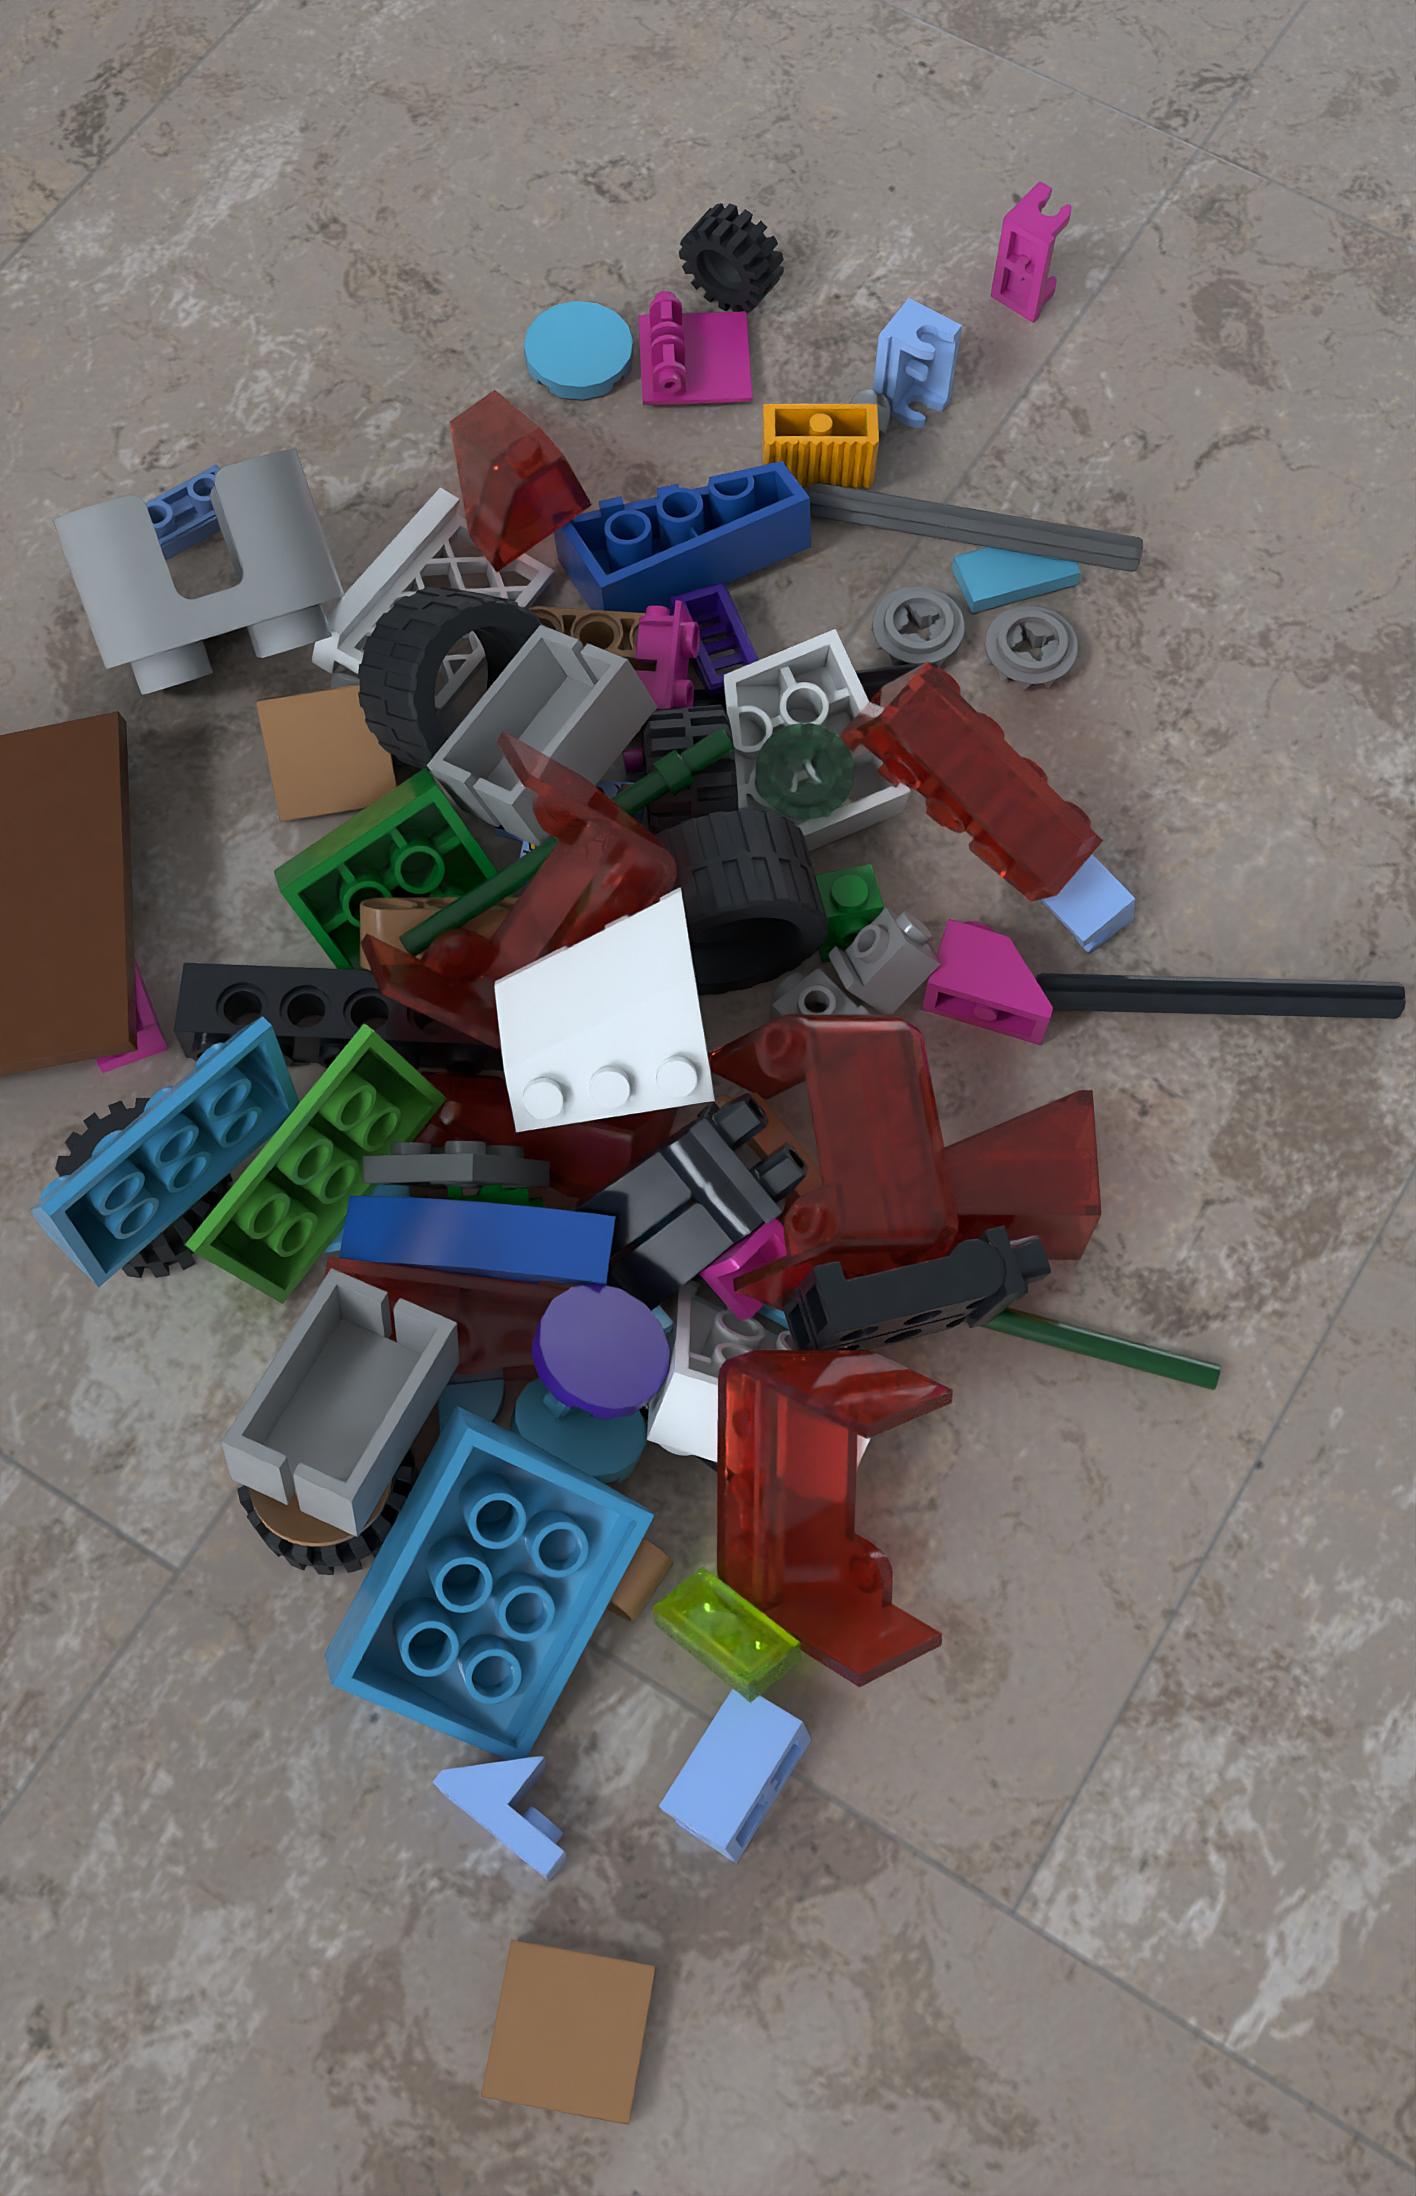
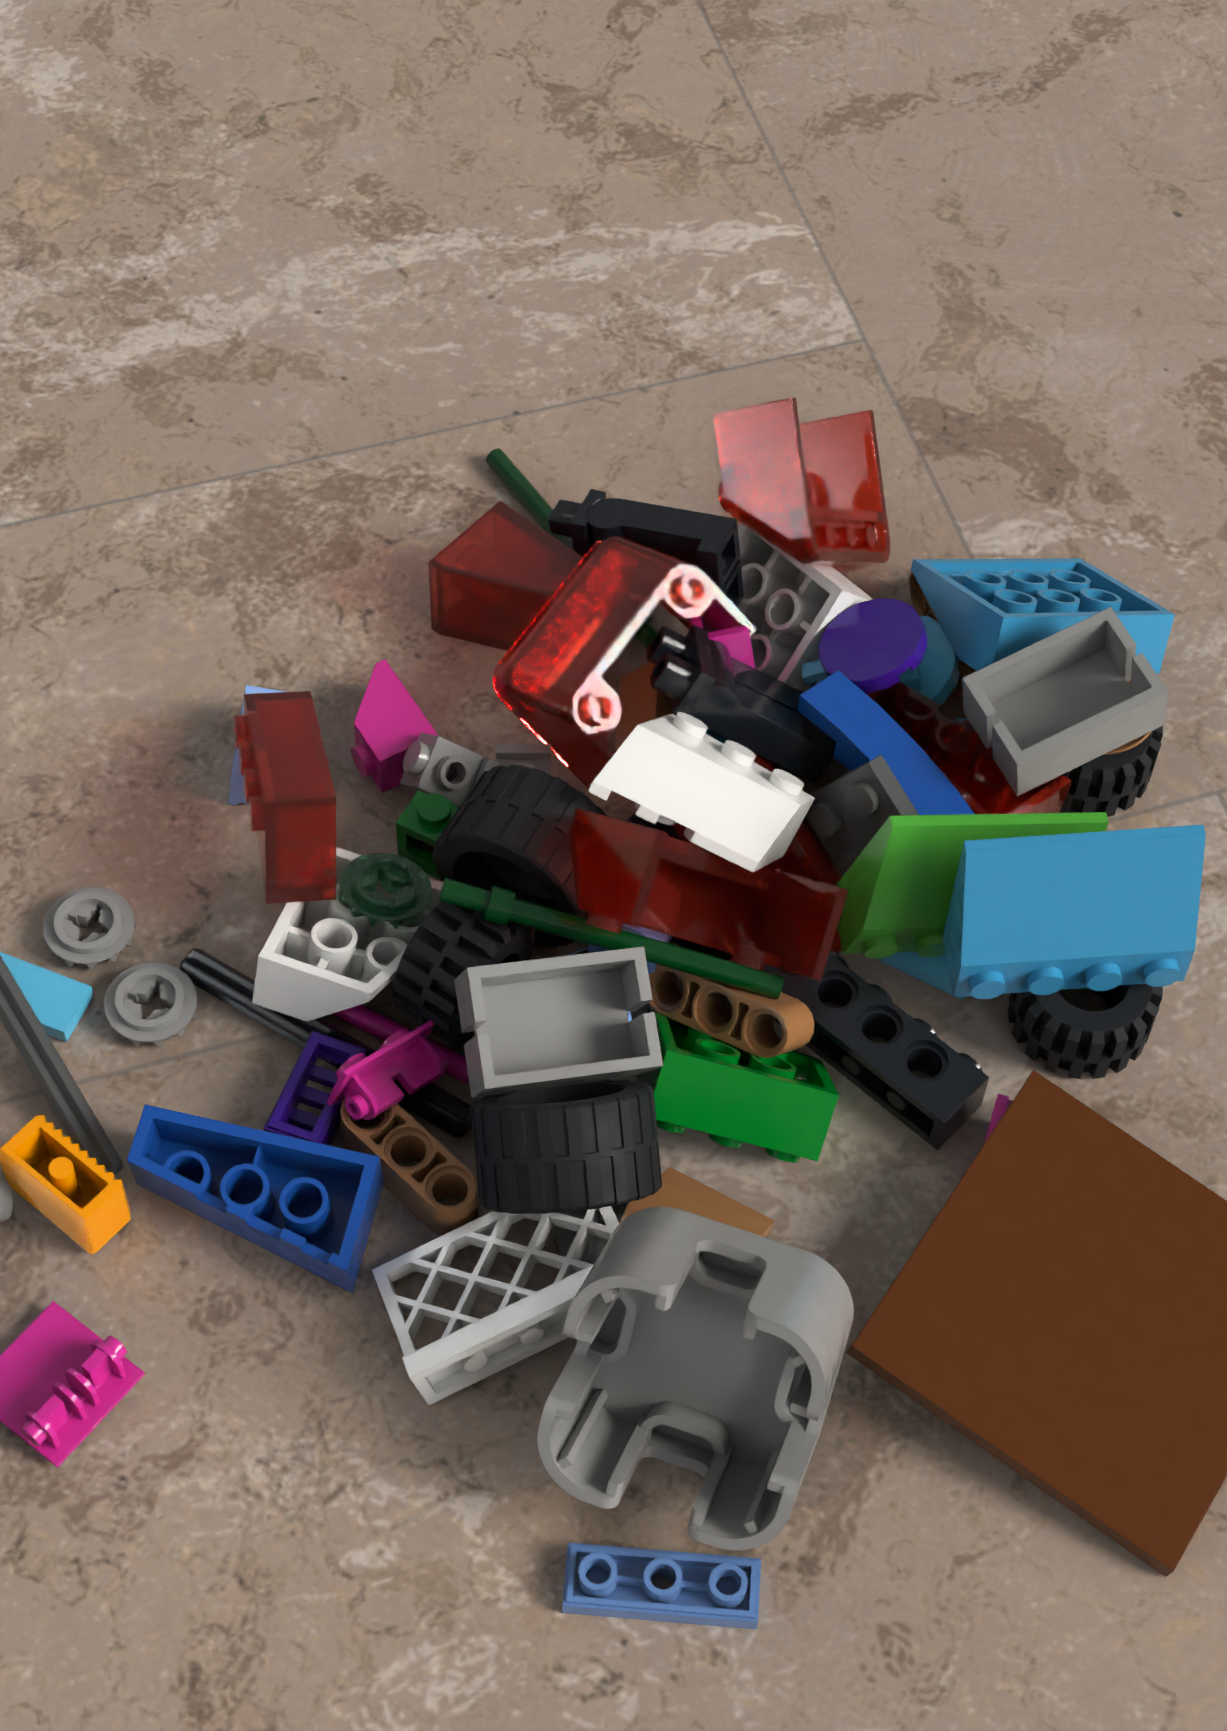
camera: 140 degrees left, 10 degrees down
(490, 1798) = (1108, 534): light blue slope -> none
(511, 480) = (348, 1336): clear red wedge -> none
(569, 2032) = (1149, 438): medium nougat tile -> none
(578, 349) = (140, 1475): medium azure tile -> none
(727, 1634) = (911, 514): clear neon green plate -> none
(736, 1773) = (961, 461): light blue hinge -> none
(1223, 995) = (248, 627): black axle -> none

